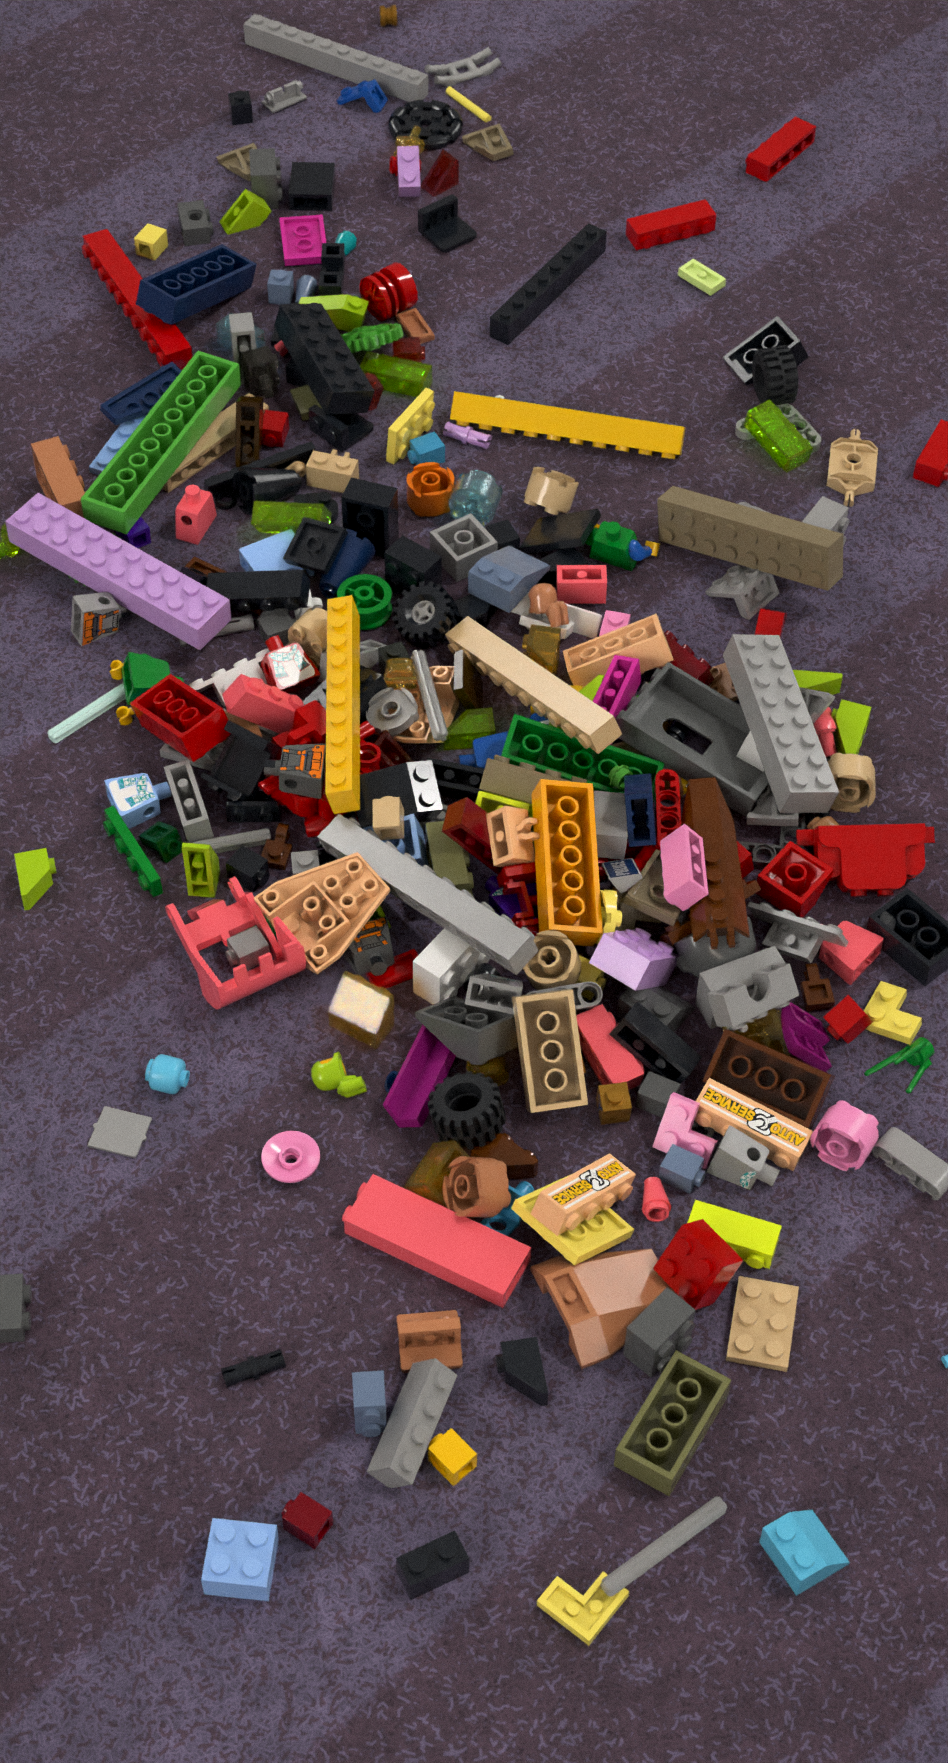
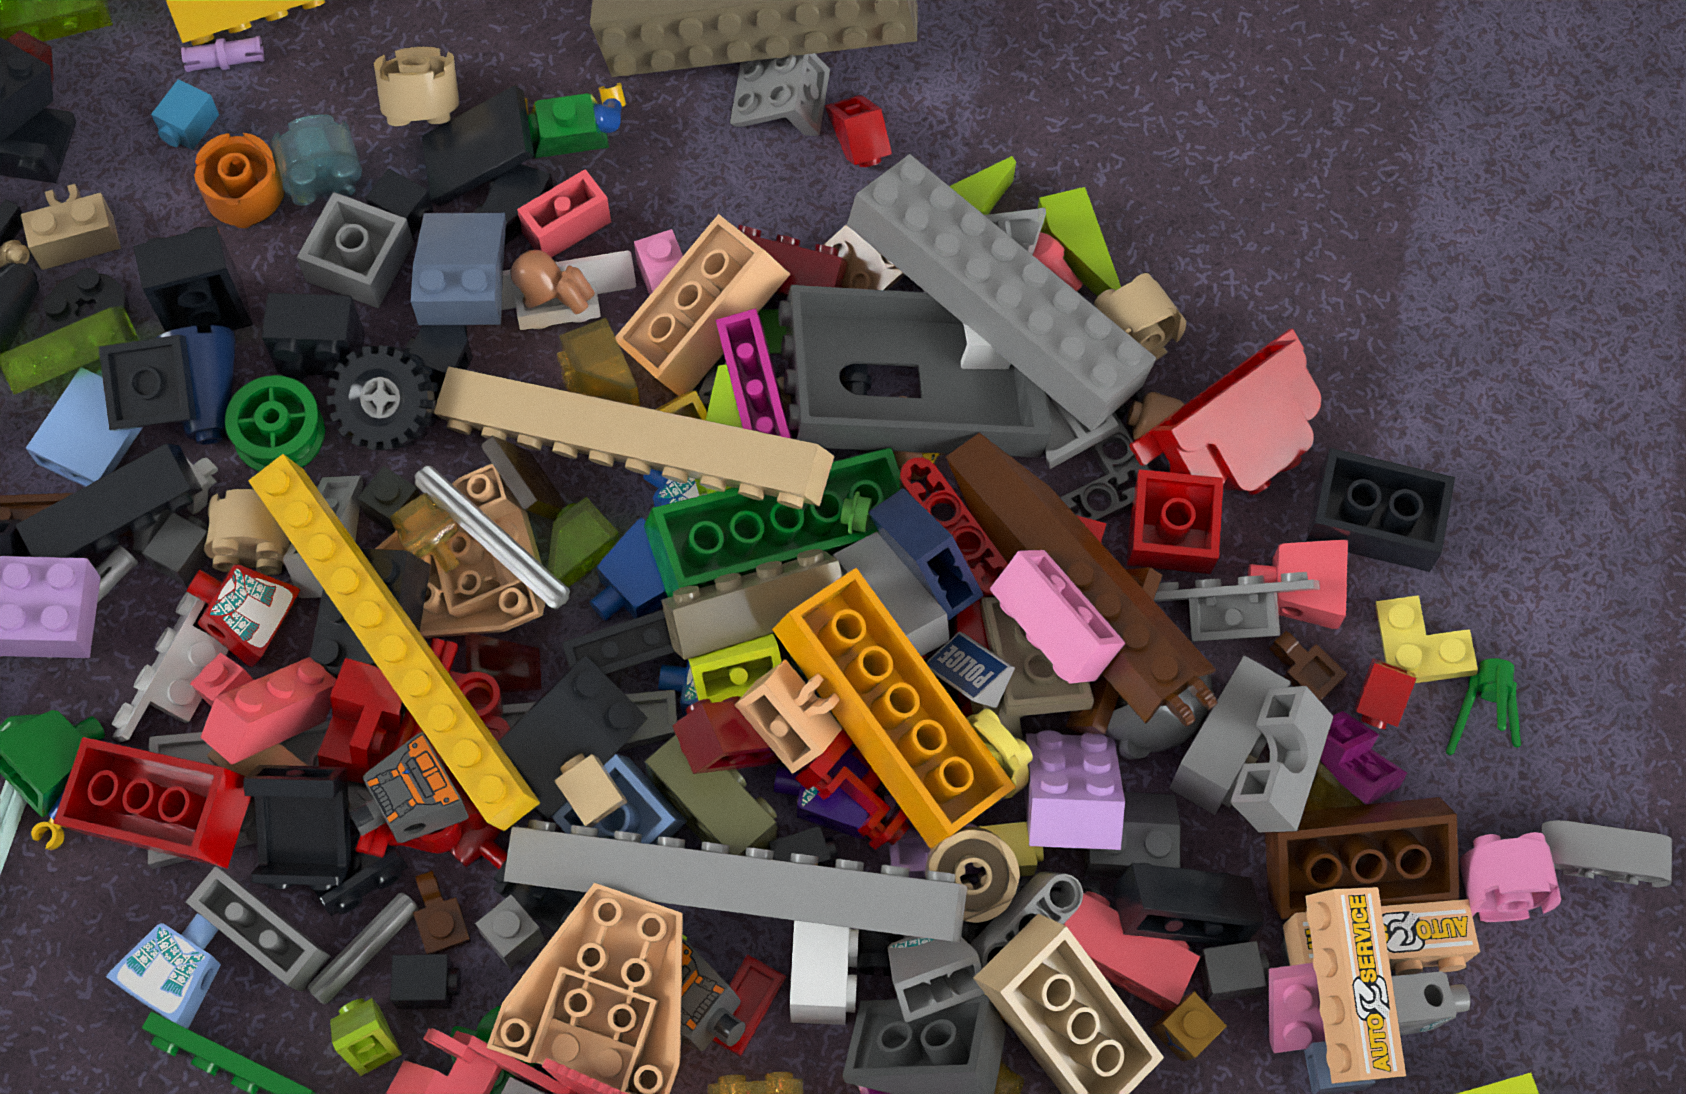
camera: 35 degrees left, 15 degrees up
(163, 839) = (260, 1013): dark green bracket -> none
(398, 721) = (446, 573): light grey plate -> none
(410, 425) = (135, 92): light yellow plate -> none
(710, 1119) = (1355, 985): none -> light nougat brick

